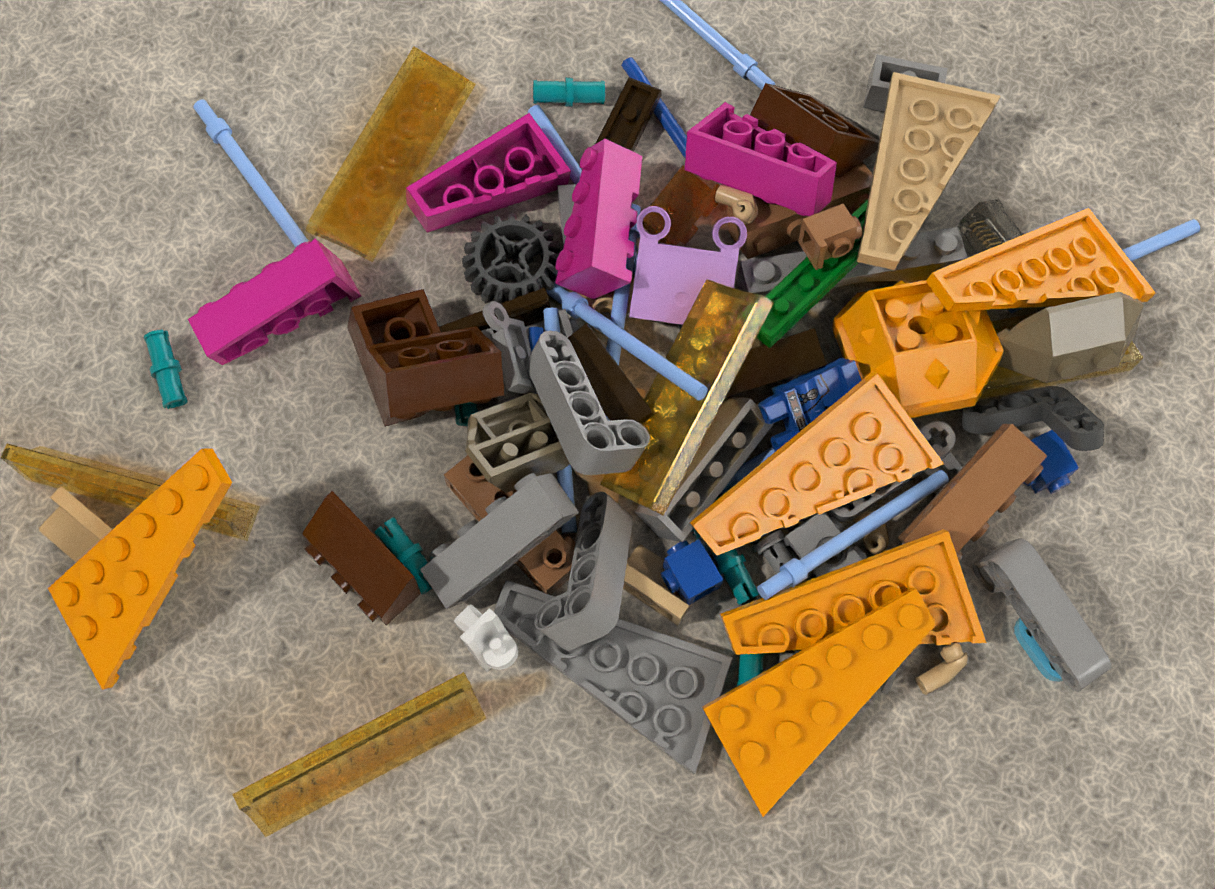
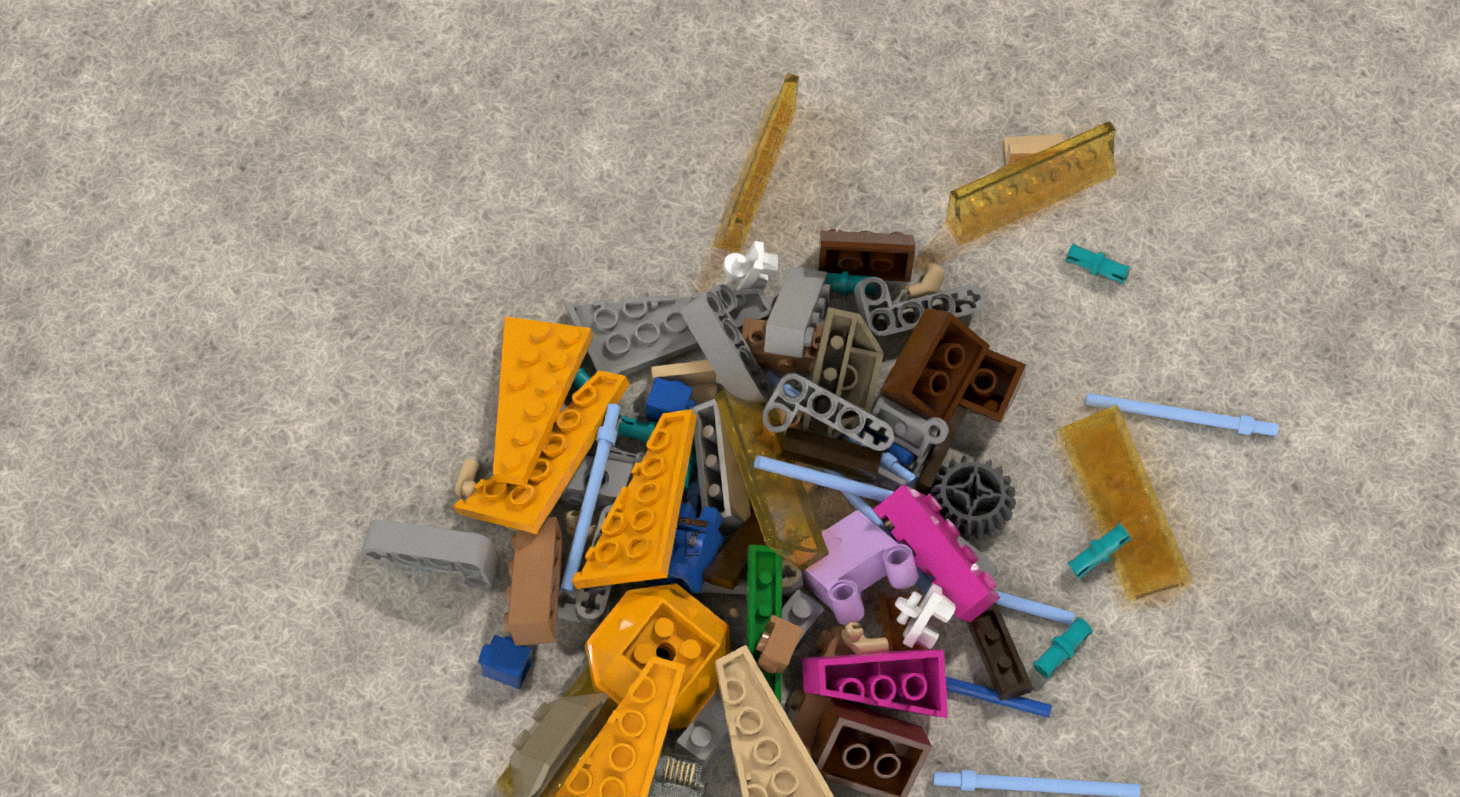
camera: 140 degrees right, 10 degrees down
(132, 569) = (978, 137): light orange wing -> none
(273, 302) = (1079, 348): dark pink wedge -> none
(342, 487) = (930, 284): none -> tan arm
(377, 461) = (893, 312): none -> light grey beam
(455, 128) = (1099, 551): none -> teal pin
(490, 176) = (1040, 546): dark pink wedge -> none
(669, 176) = (917, 629): none -> white hips
(1049, 404) = (537, 690): dark grey beam -> none

